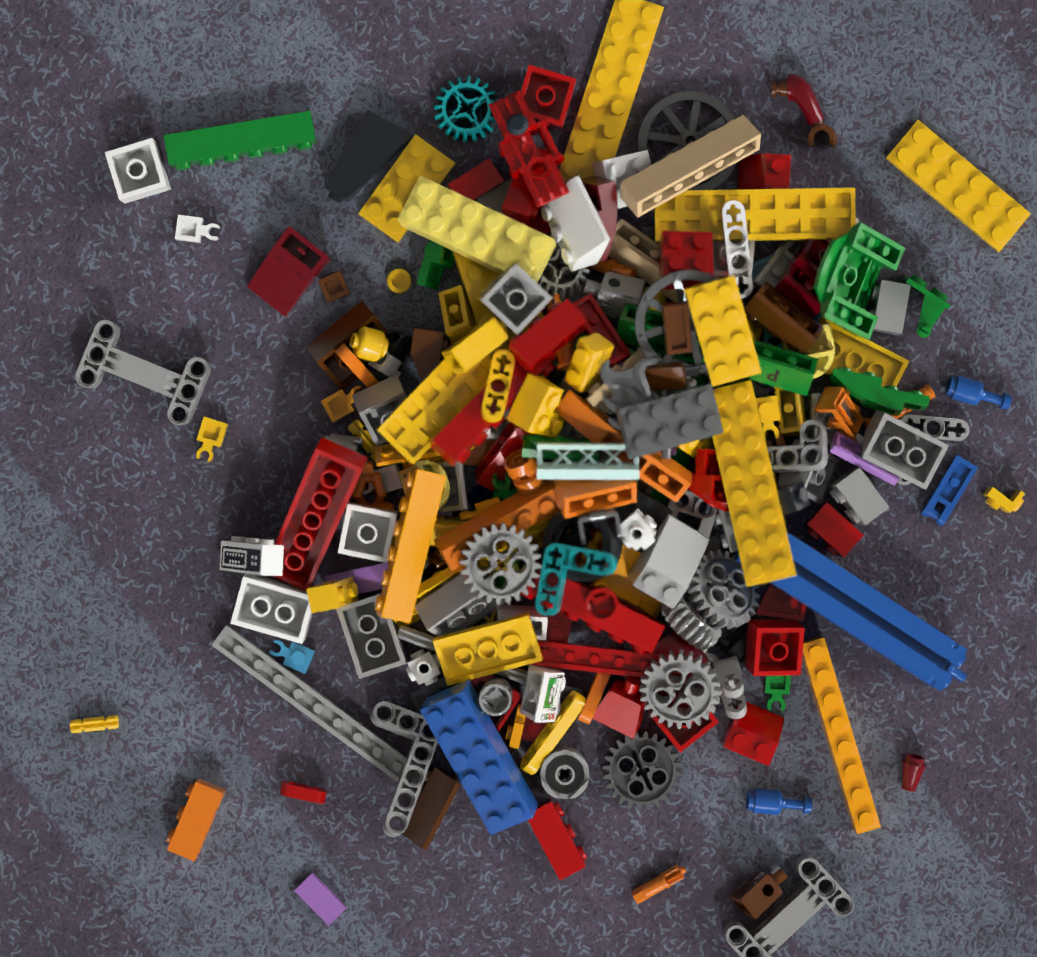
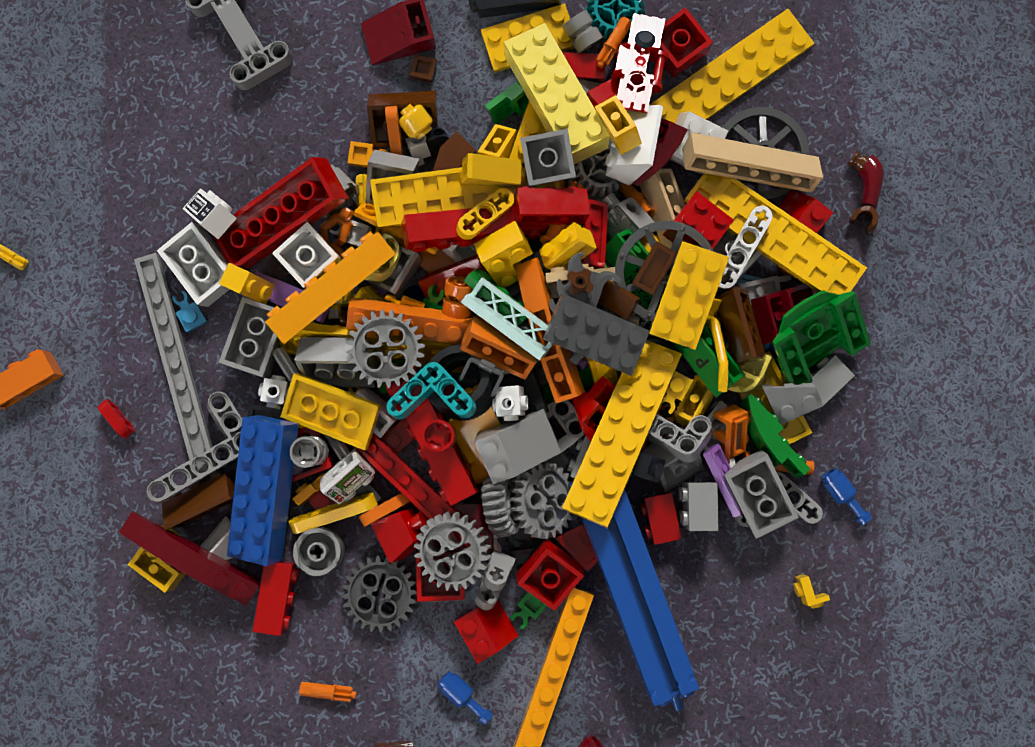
camera: 35 degrees right, 5 degrees down
(211, 434) = (253, 108): yellow plate -> none
(320, 898) = (67, 509): medium lavender tile -> none
(399, 281) = (474, 99): yellow tile -> none
(432, 886) = (155, 570): none -> yellow brick
(452, 152) = (582, 32): none -> light grey wheel
(464, 858) = (191, 558): none -> dark red slope
(471, 831) = (218, 540): none -> white slope
(489, 143) = (611, 46): none -> orange piece
(554, 224) = (619, 125): none -> yellow brick
(624, 395) = (575, 287): none -> reddish brown plate
(777, 350) = (719, 347): none -> yellow piece
(873, 347) = (792, 400): none -> light grey wing
(932, 306) = (861, 403): green plate -> none
(949, 489) = (772, 553): blue plate -> none
(958, 186) = (942, 330): yellow plate -> none

